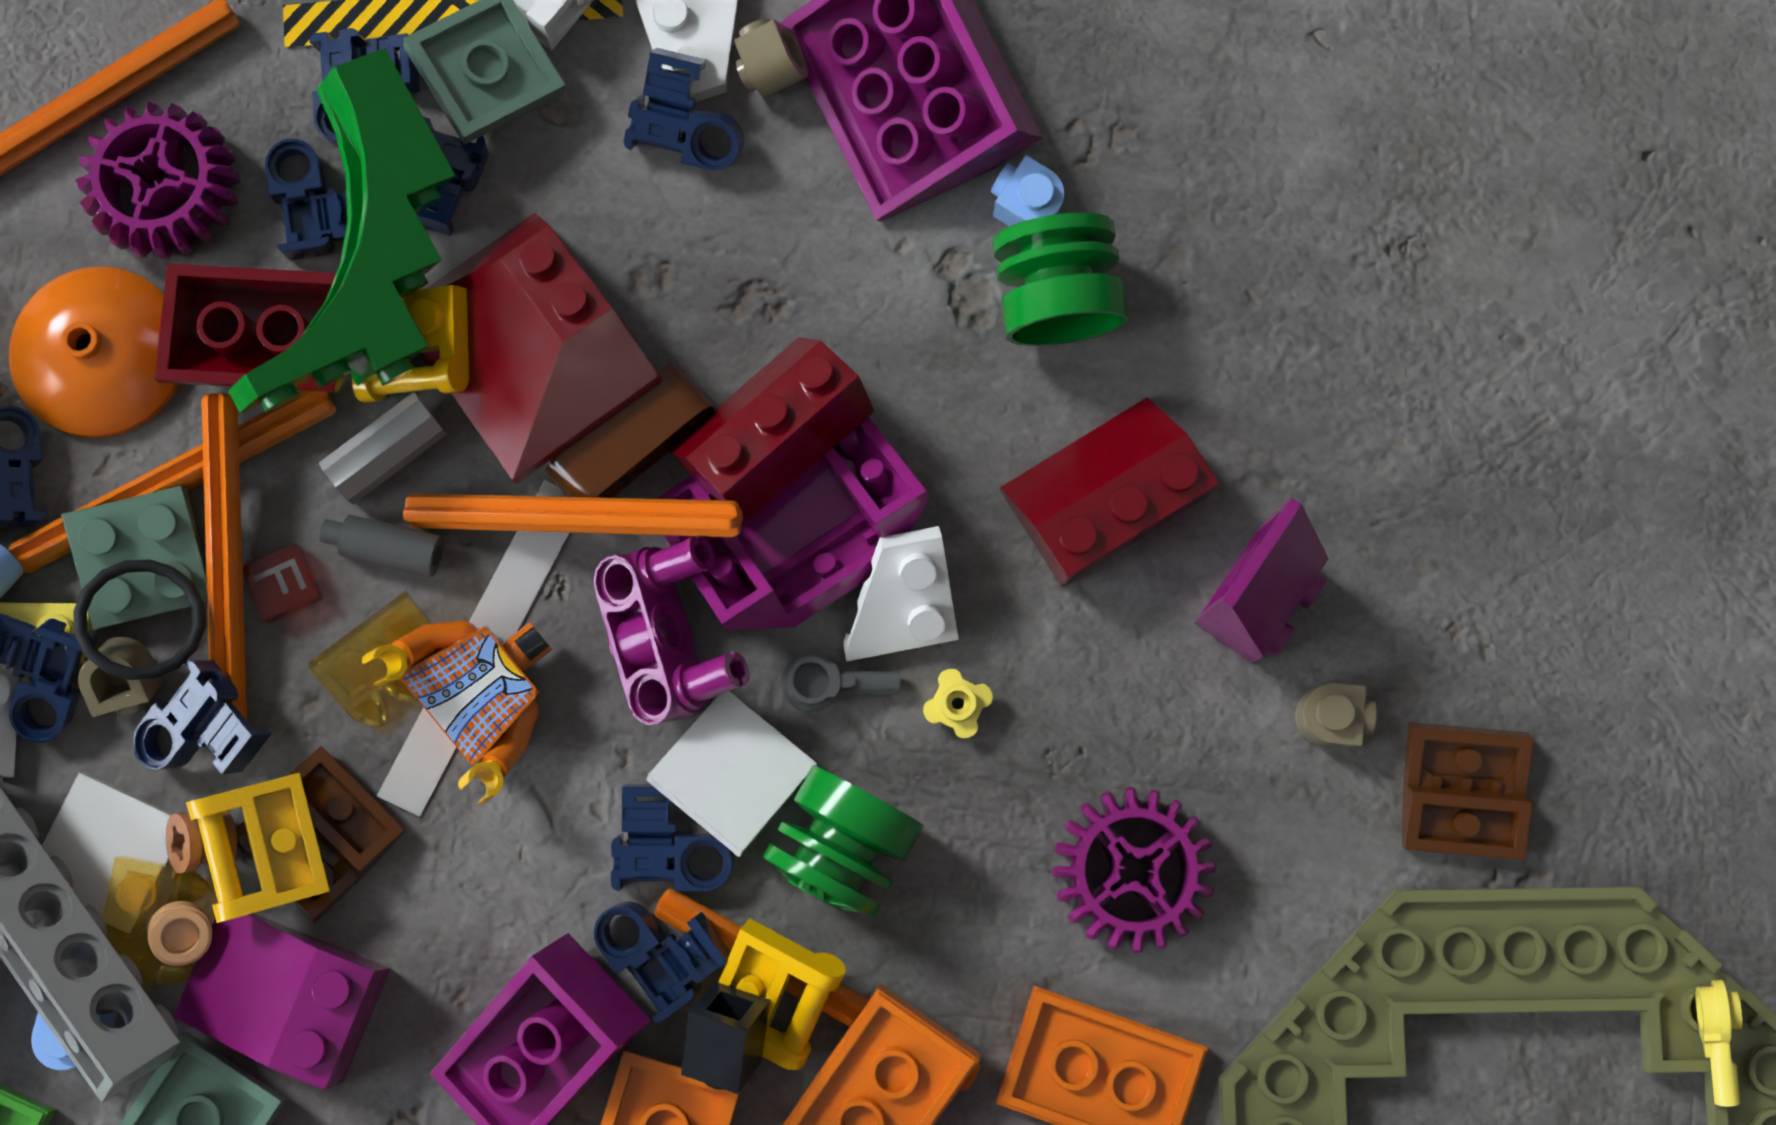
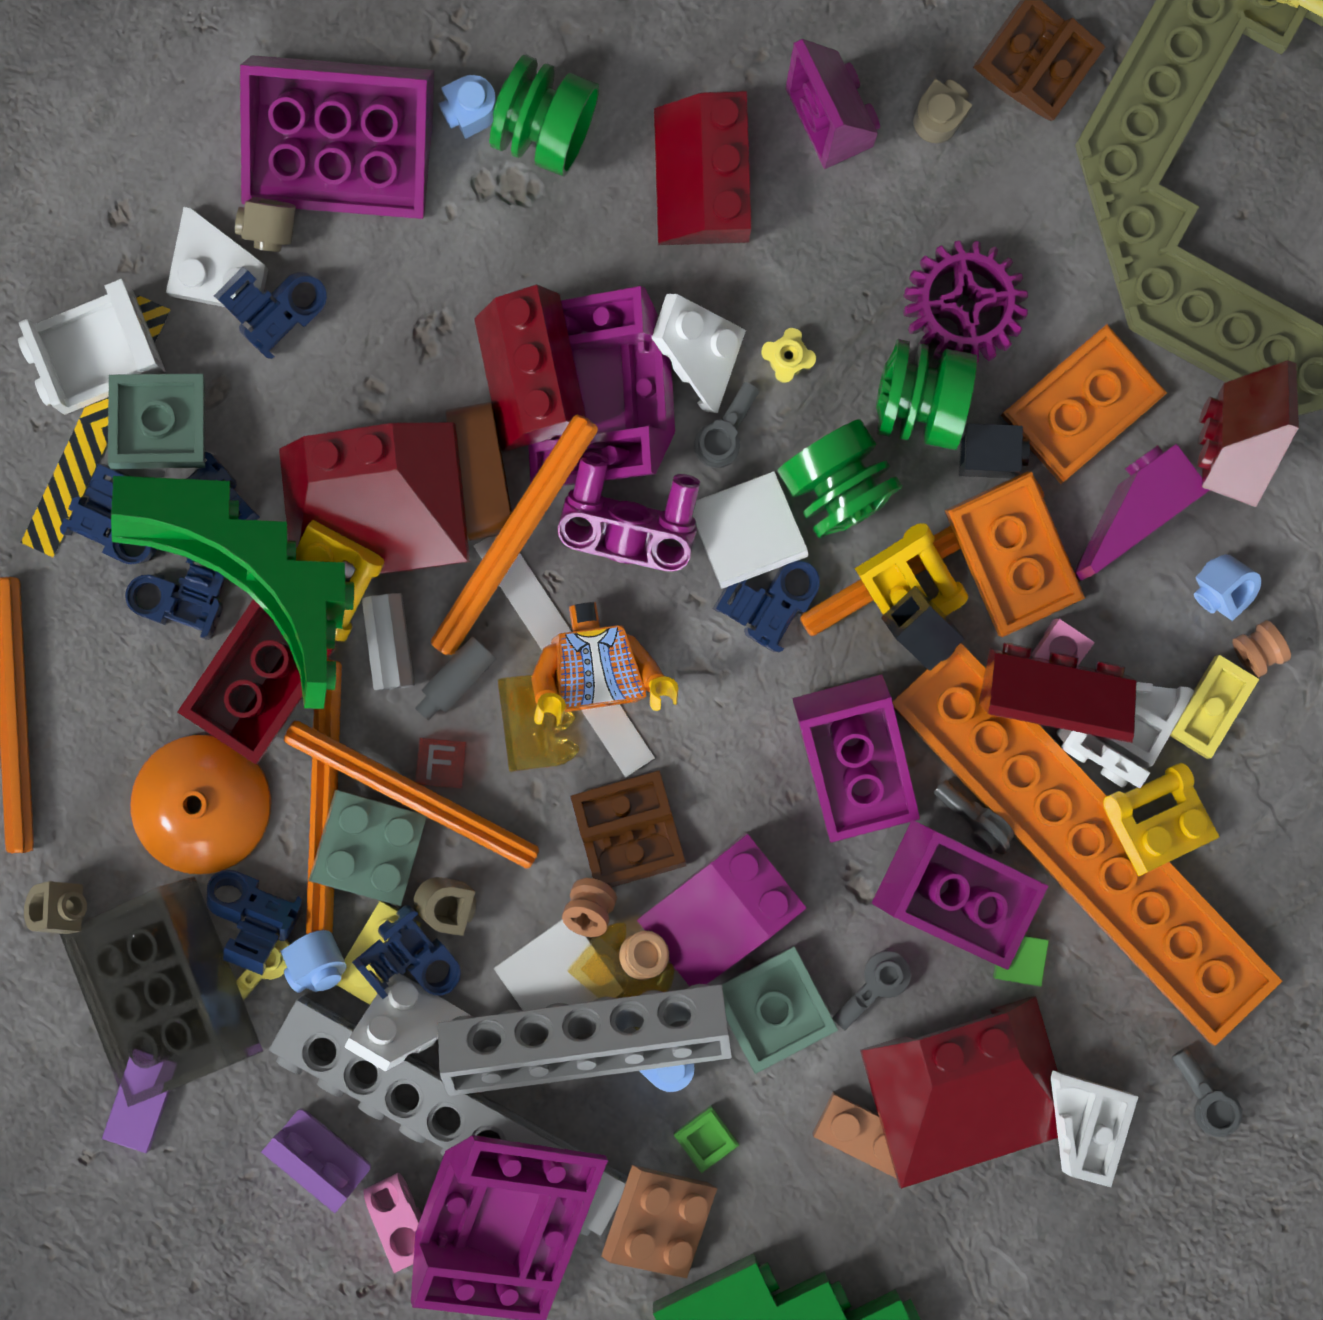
camera: 60 degrees left, 5 degrees up
(138, 673) = (431, 903): black piece -> none
(160, 141) = (89, 707): magenta gear -> none
(199, 719) = (505, 863): dark blue piece -> none
(279, 840) = (623, 852): yellow plate -> none
(661, 969) = (854, 646): dark blue piece -> none
(983, 1000) = (993, 451): none -> black brick
(997, 885) = (926, 394): none -> green wheel

